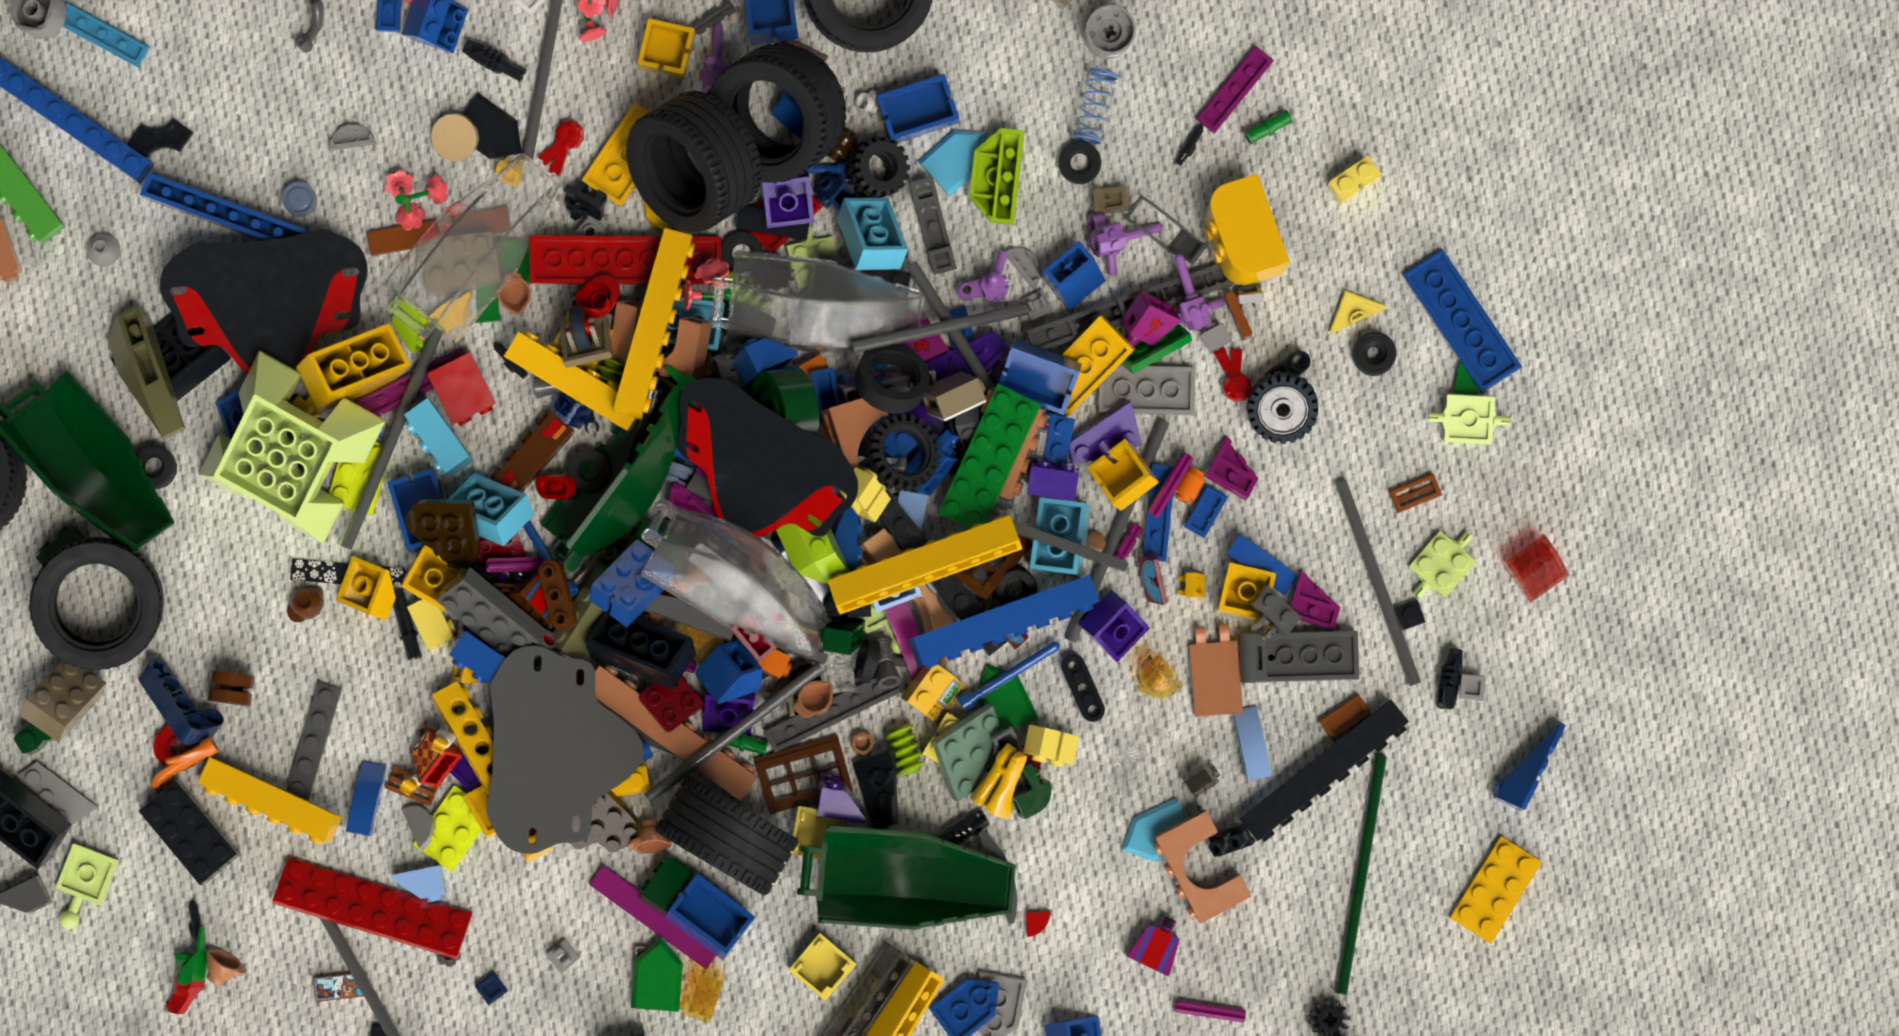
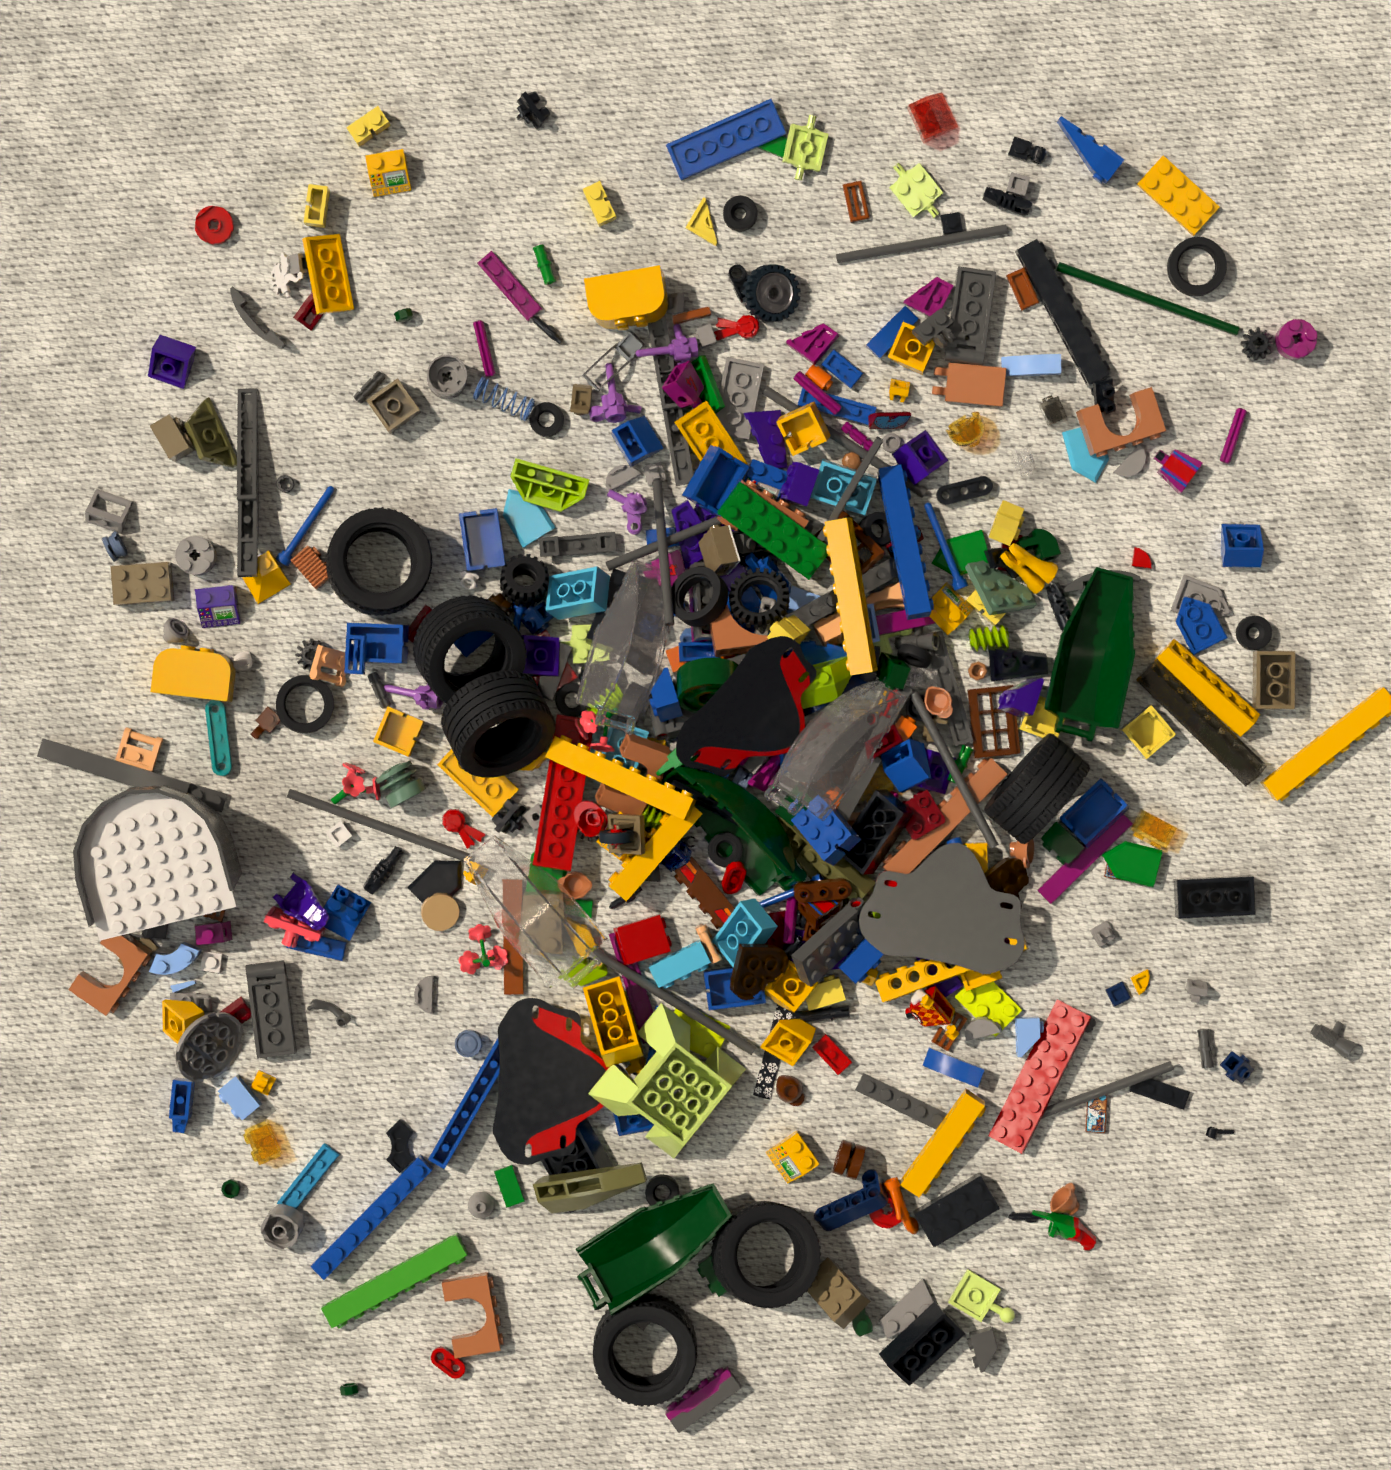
camera: 85 degrees left, 5 degrees up
(132, 279) = (509, 1186): none -> green tile
(223, 620) = (792, 1157): none -> yellow slope
(358, 646) = (831, 1054): none -> red plate
(479, 463) = (712, 950): none -> light nougat plate
(512, 1014) = (1141, 981): none -> yellow tile
(602, 61) = (400, 784): none -> sand green wheel
(1126, 588) = (891, 442): none -> light grey tile
(1152, 891) = (1133, 463): none -> light grey tile
(1153, 72) = (484, 348): none -> magenta axle
(1440, 920) = (1204, 244): none -> black tyre
(1451, 75) = (529, 111): none -> black hips
(1517, 686) = (1022, 149): none -> black plate

